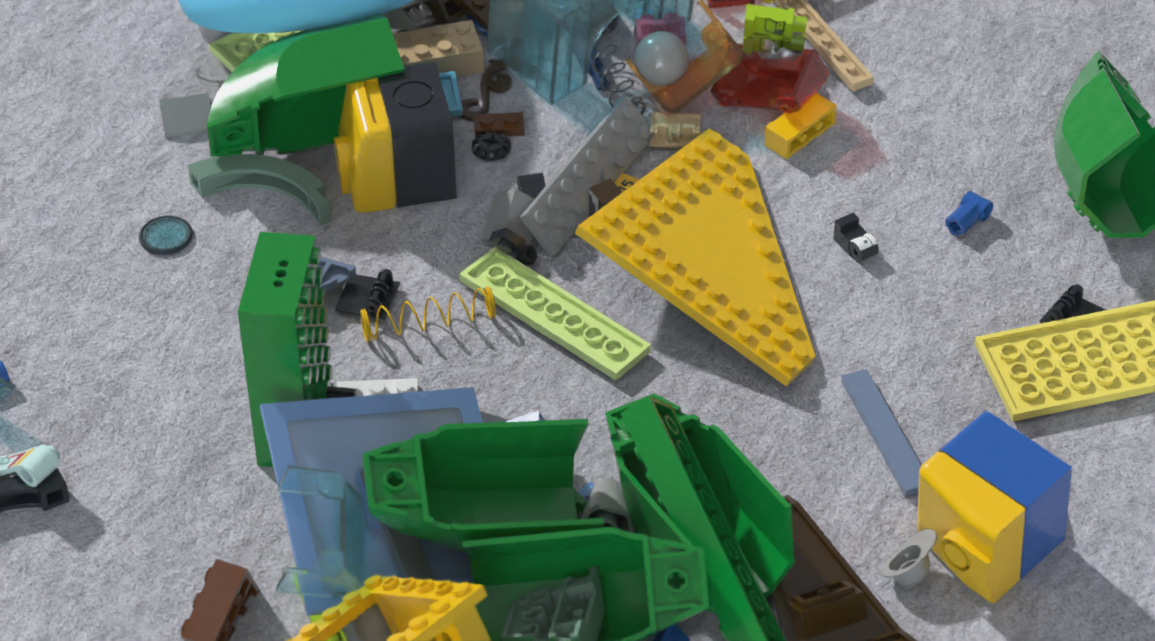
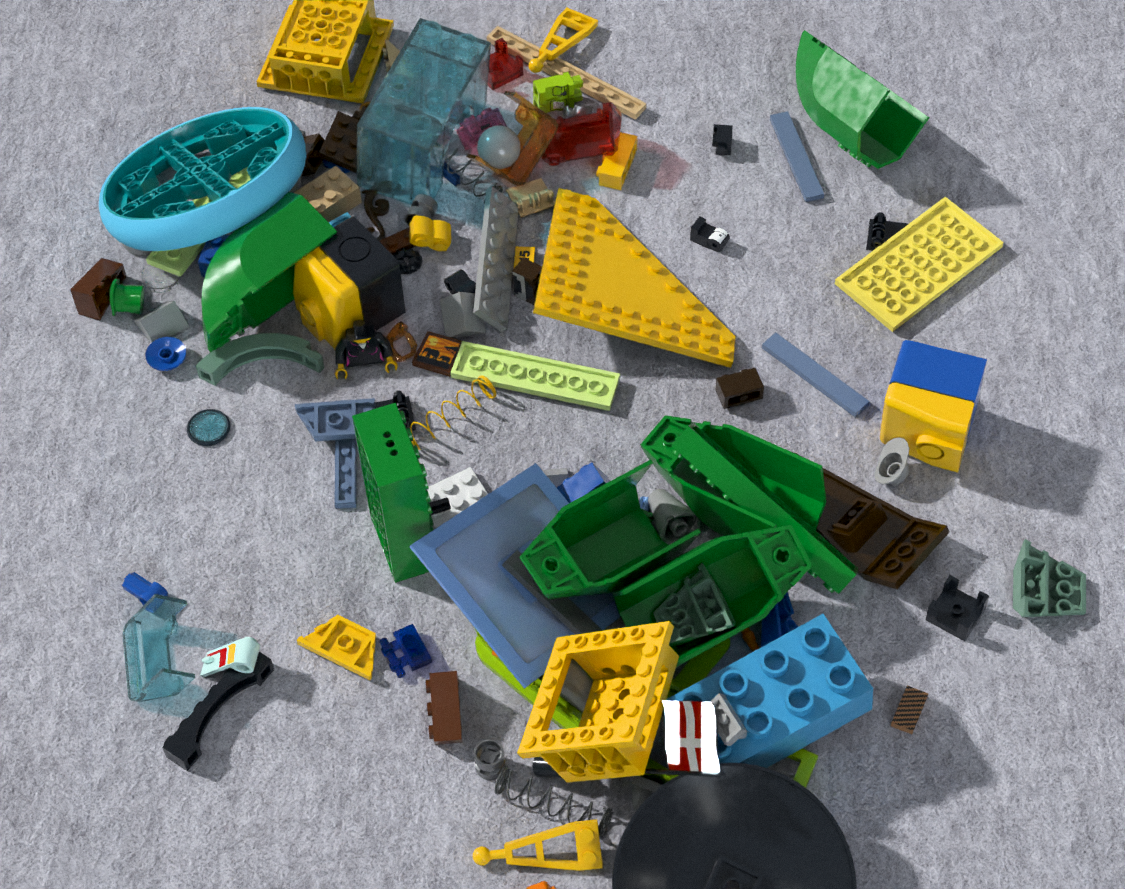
camera: 25 degrees left, 10 degrees up
(141, 55) = (92, 291): none -> reddish brown wedge
(157, 503) = (343, 644): none -> yellow wing
(162, 74) = (126, 298): none -> green piece
(168, 144) = (162, 348): none -> blue dish
(227, 536) = (412, 648): none -> clear blue plate
(339, 569) = (534, 641): clear light blue windscreen -> none
(378, 212) = (362, 347): none -> black torso
(429, 214) = (395, 334): none -> clear orange piece
(459, 249) = (437, 353): none -> tile
(509, 242) = (475, 334): black plate -> none
(532, 125) = (430, 233): none -> yellow brick
(538, 100) = (423, 206): none -> flat silver wheel
(781, 408) = (739, 388): none -> dark brown brick
(940, 145) = (722, 139): none -> black brick
(971, 209) = (773, 182): blue piece -> none
(1020, 194) = (796, 157): none -> sand blue tile

